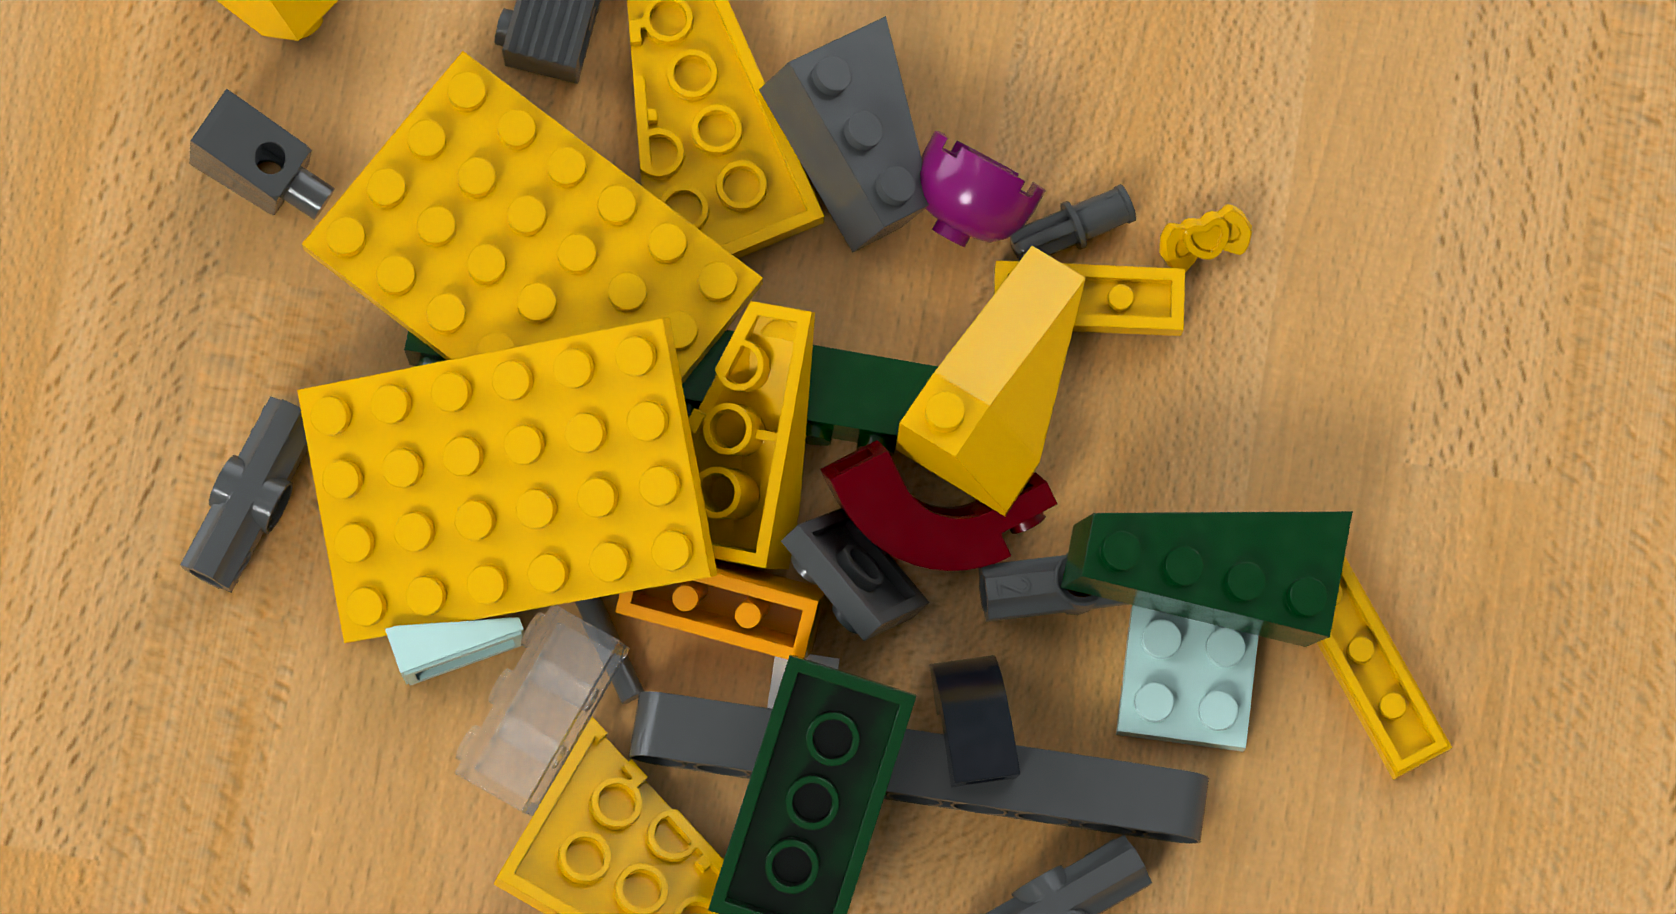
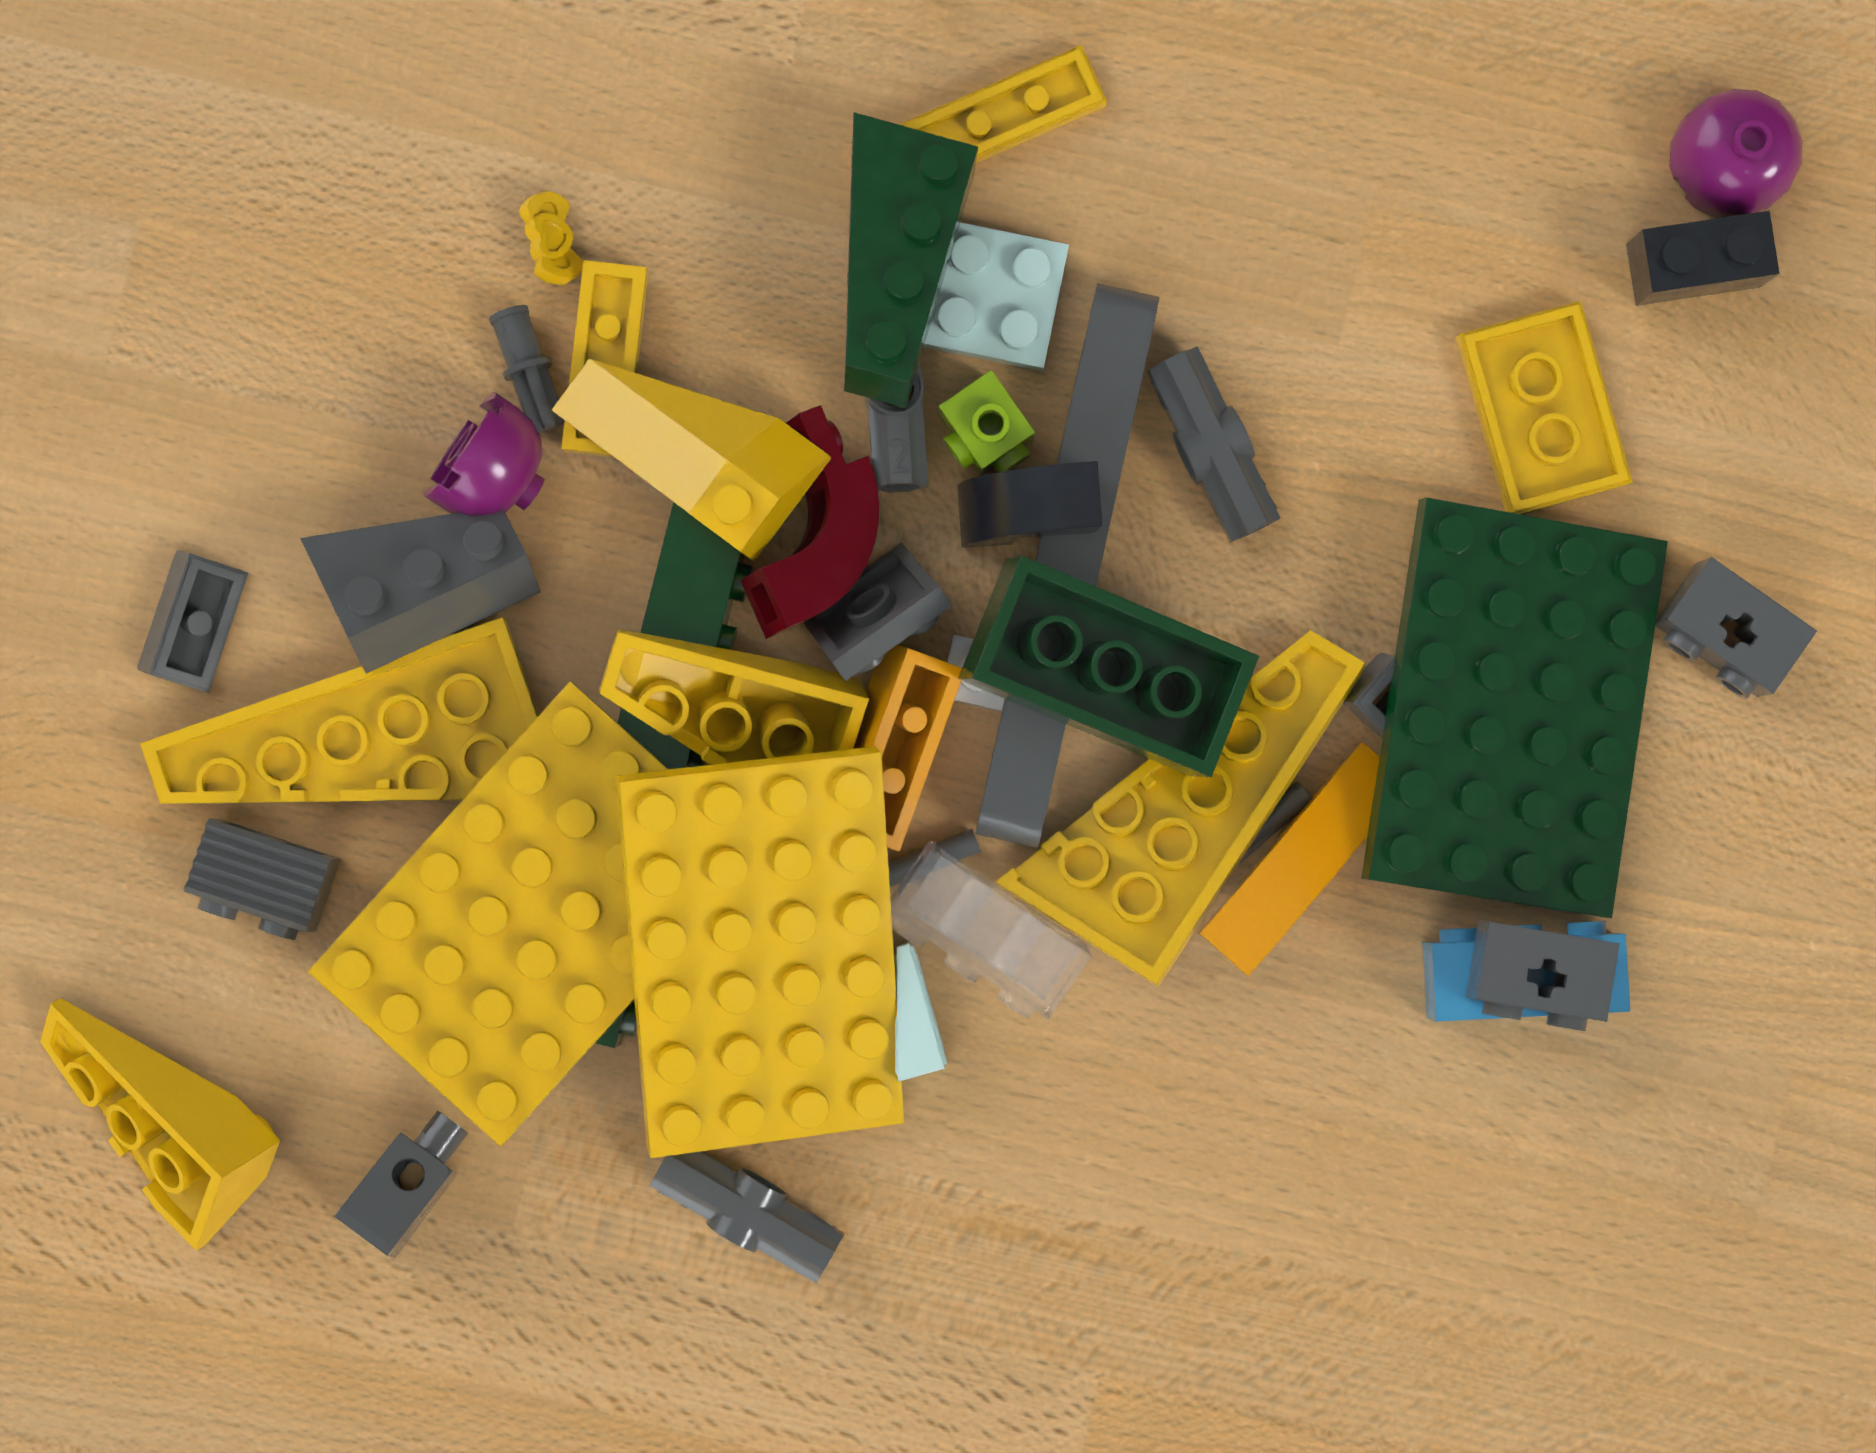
camera: 80 degrees left, 10 degrees up
(1051, 675) = (986, 427): none -> lime brick

